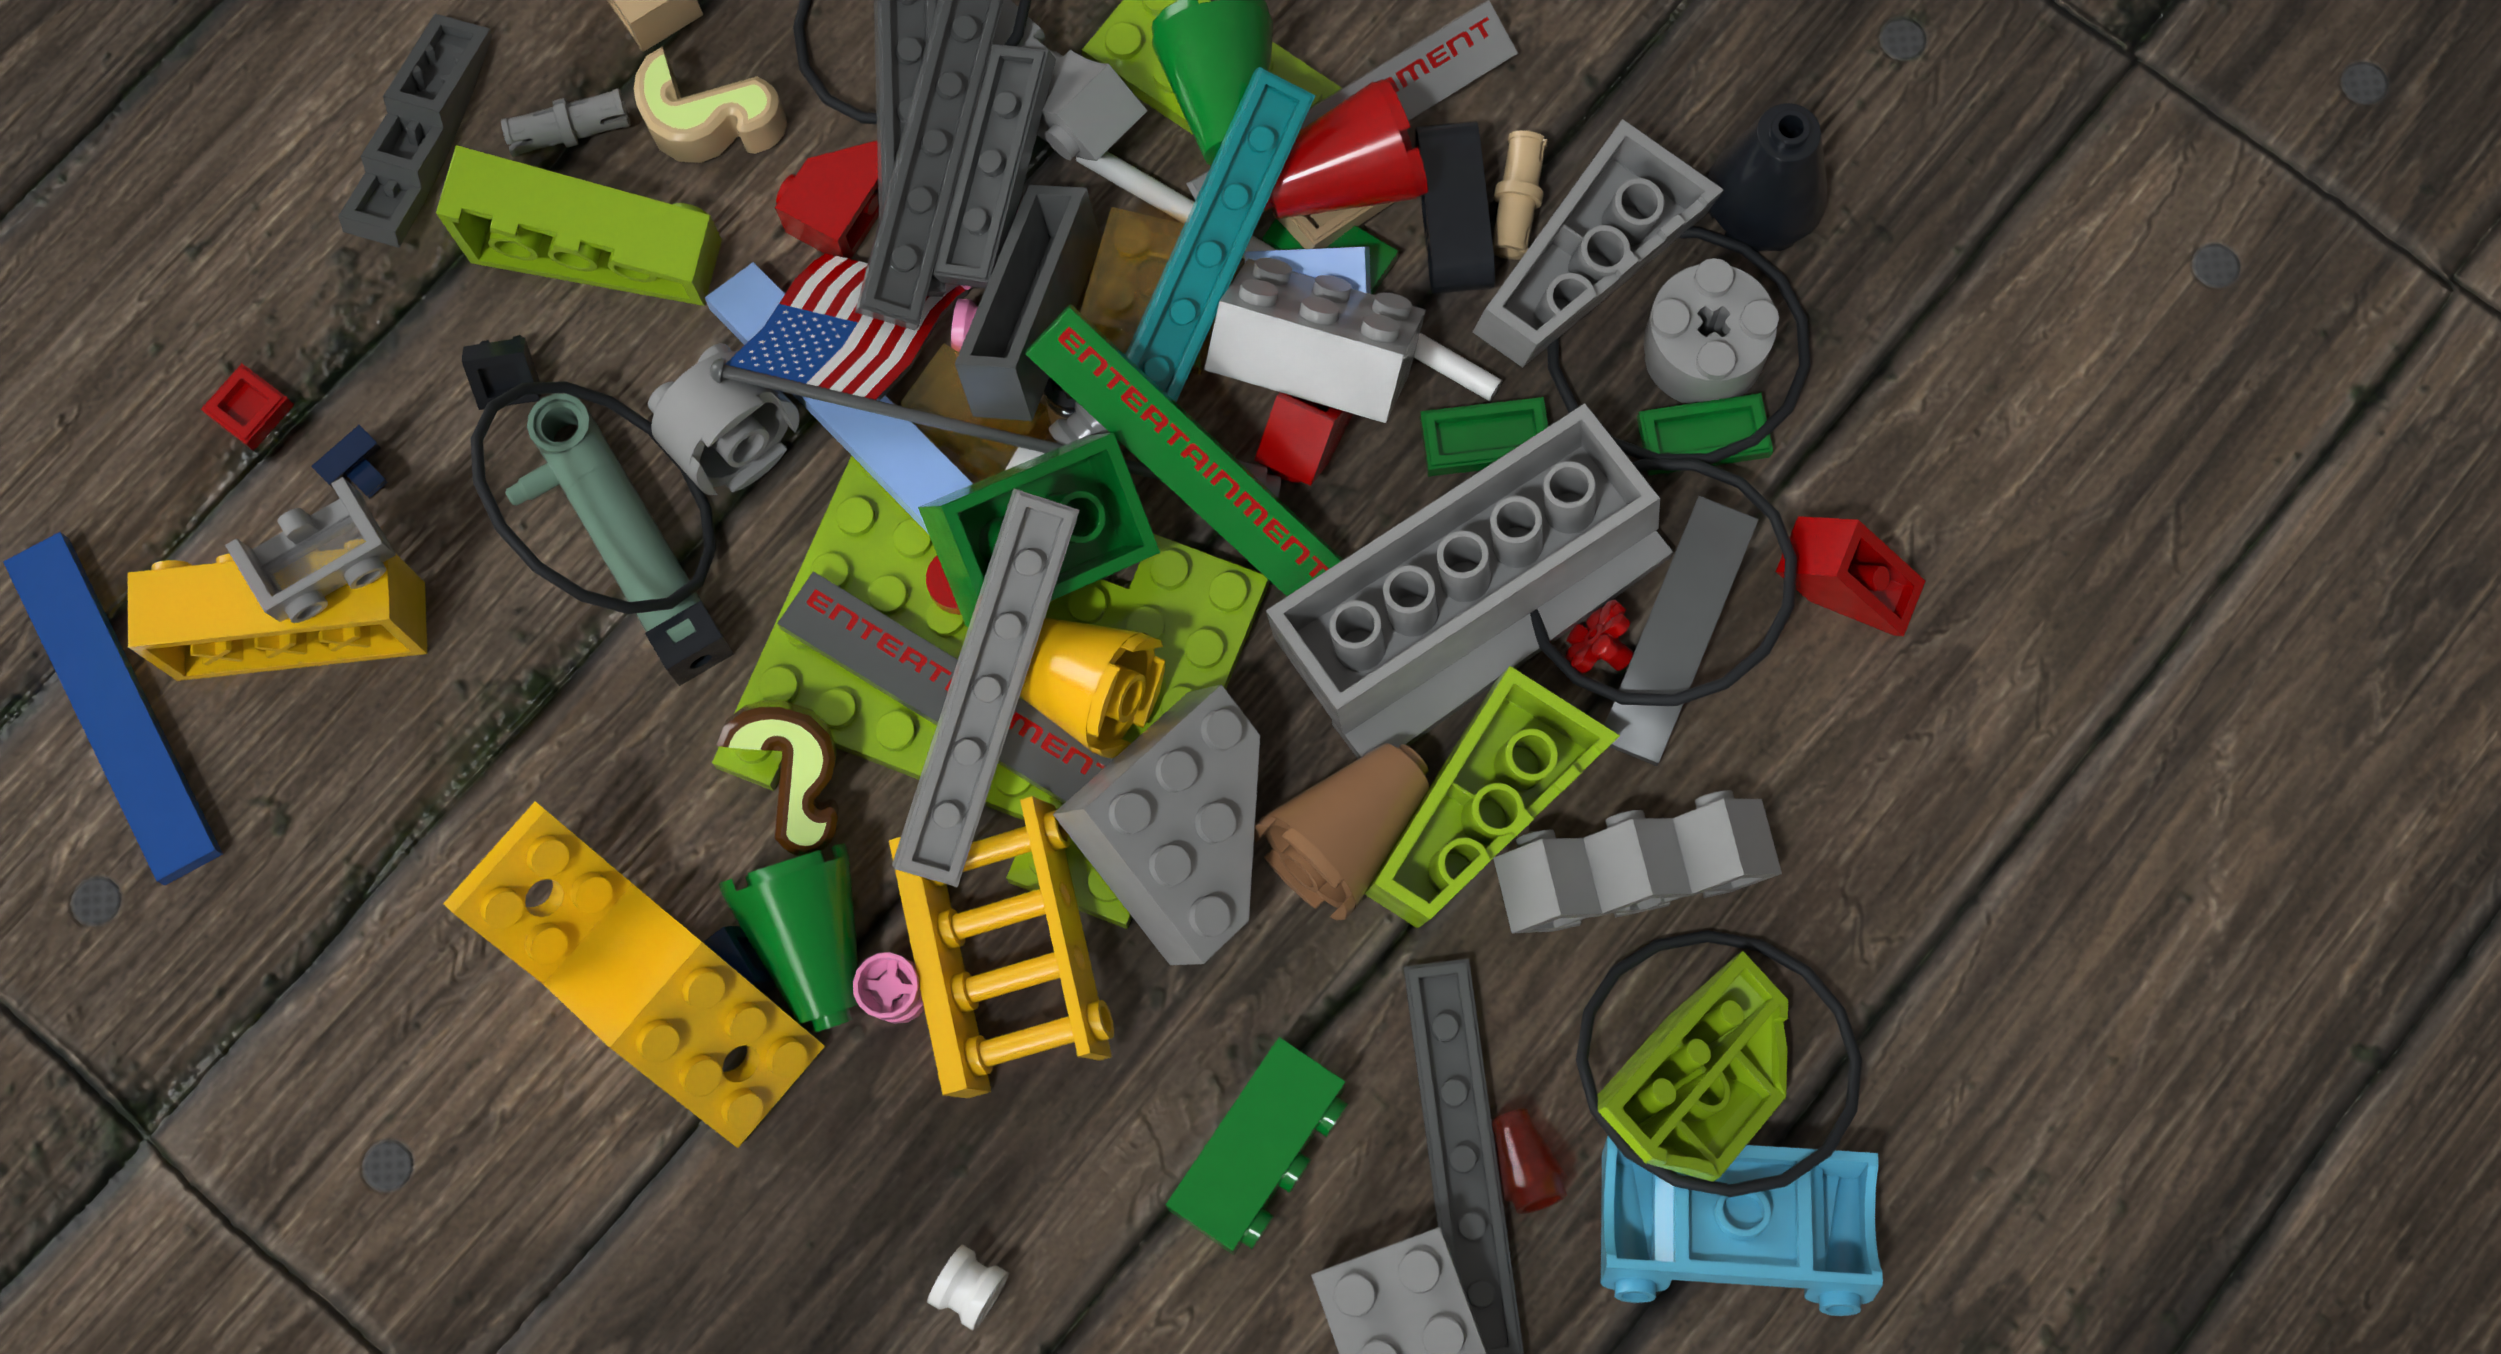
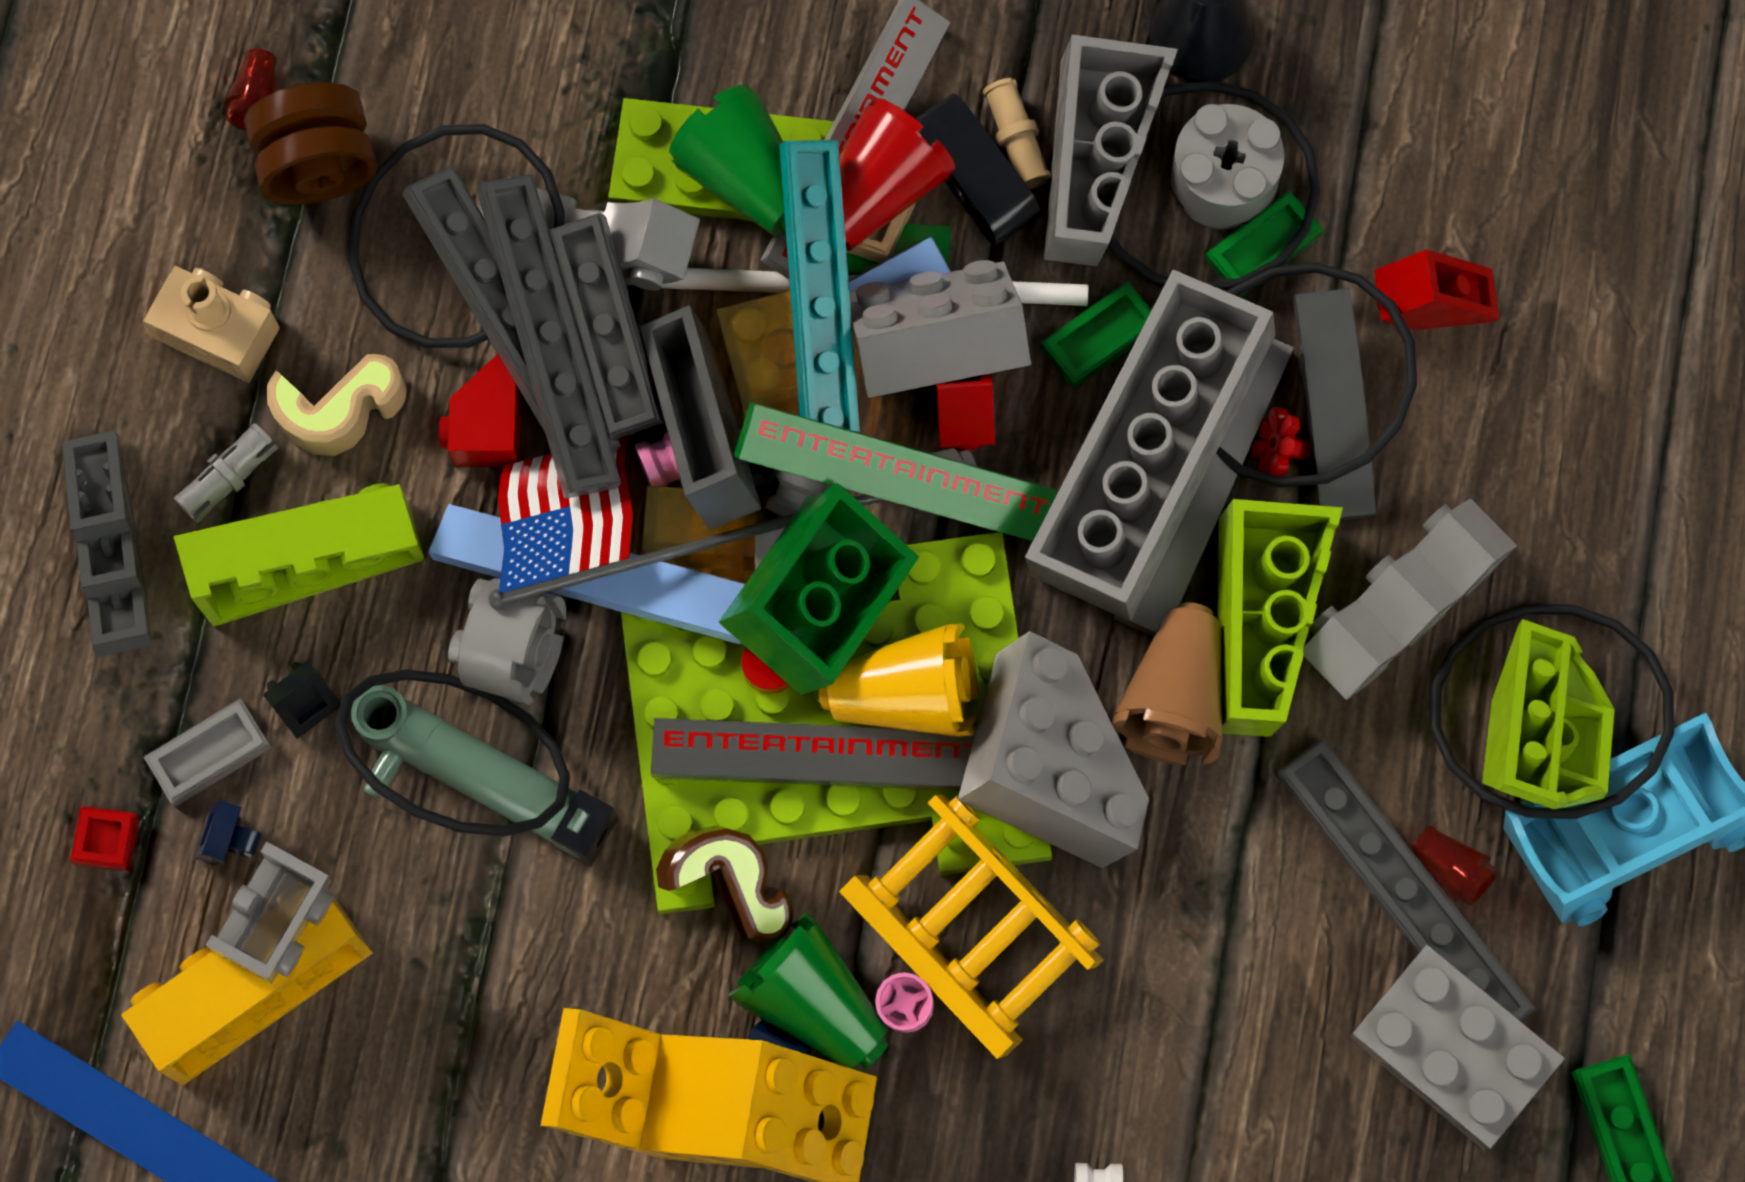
camera: 30 degrees left, 0 degrees up
(390, 377) = (207, 752): none -> light grey tile
(985, 688) = (855, 731): light grey tile -> none
(1259, 1148) = (1253, 965): green brick -> none

